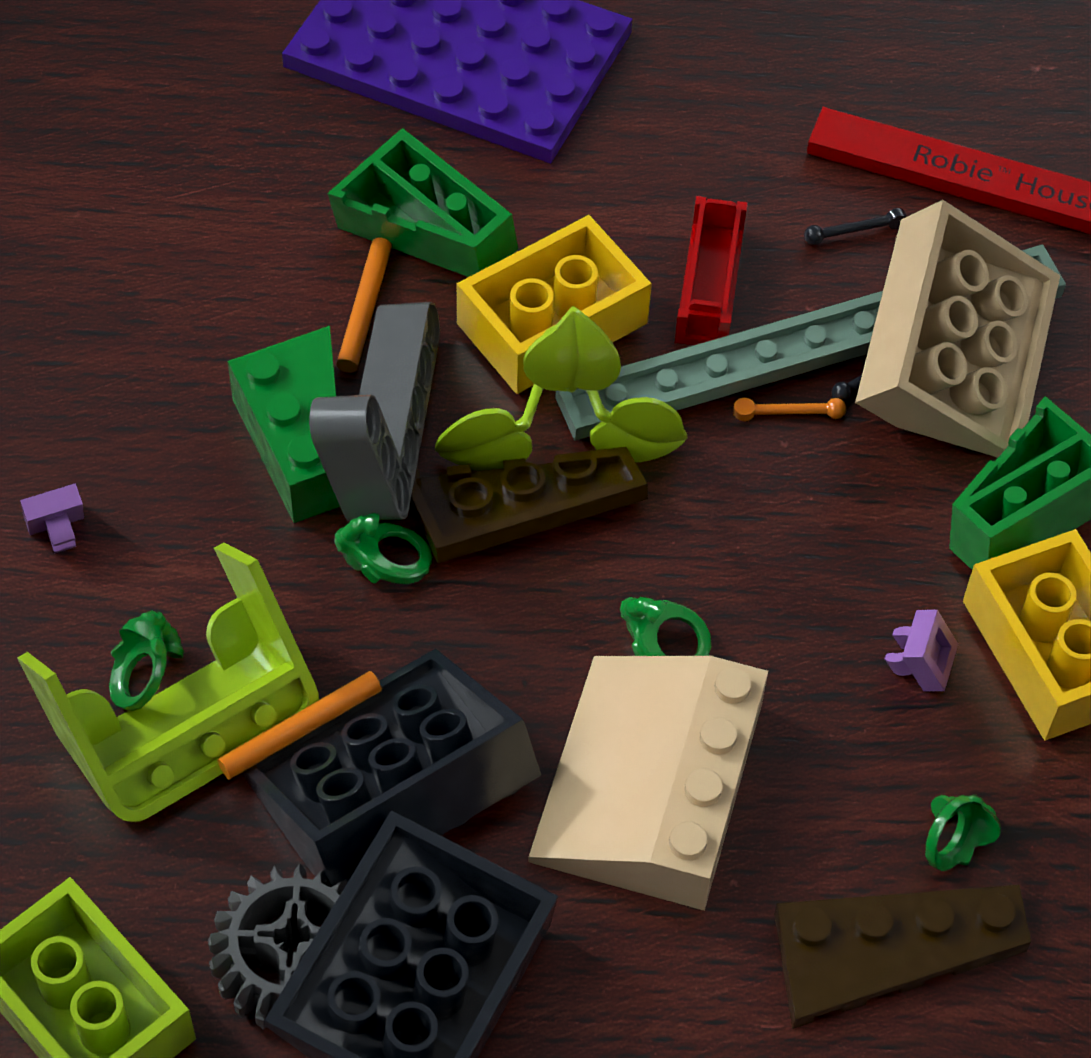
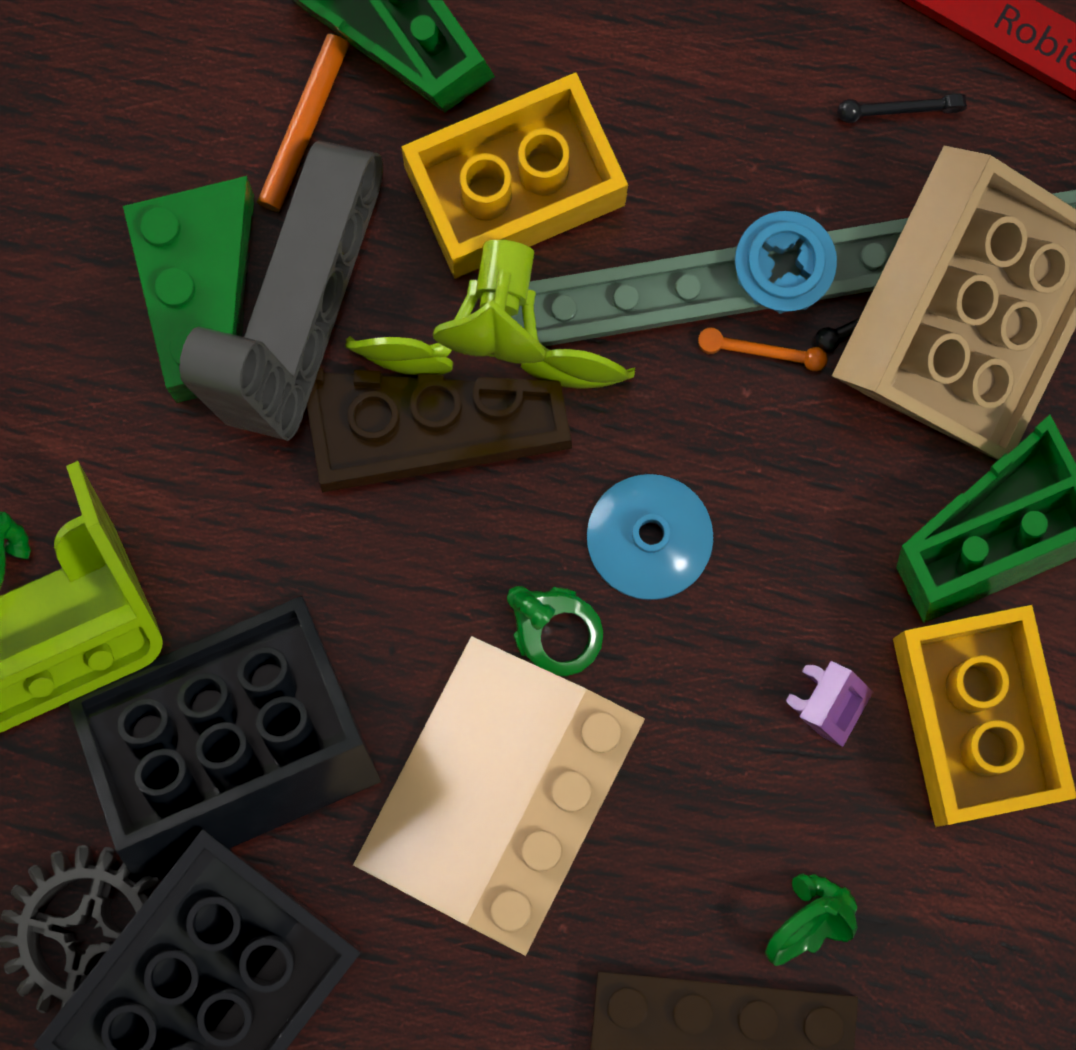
camera: 10 degrees right, 25 degrees up
(299, 725) = (136, 673): orange bar -> none
(360, 550) = (240, 463): green piece -> none
(711, 271) = (713, 151): red container -> none
(729, 578) = (642, 568): none -> dark azure dish
(783, 309) = (778, 233): none -> dark azure gear

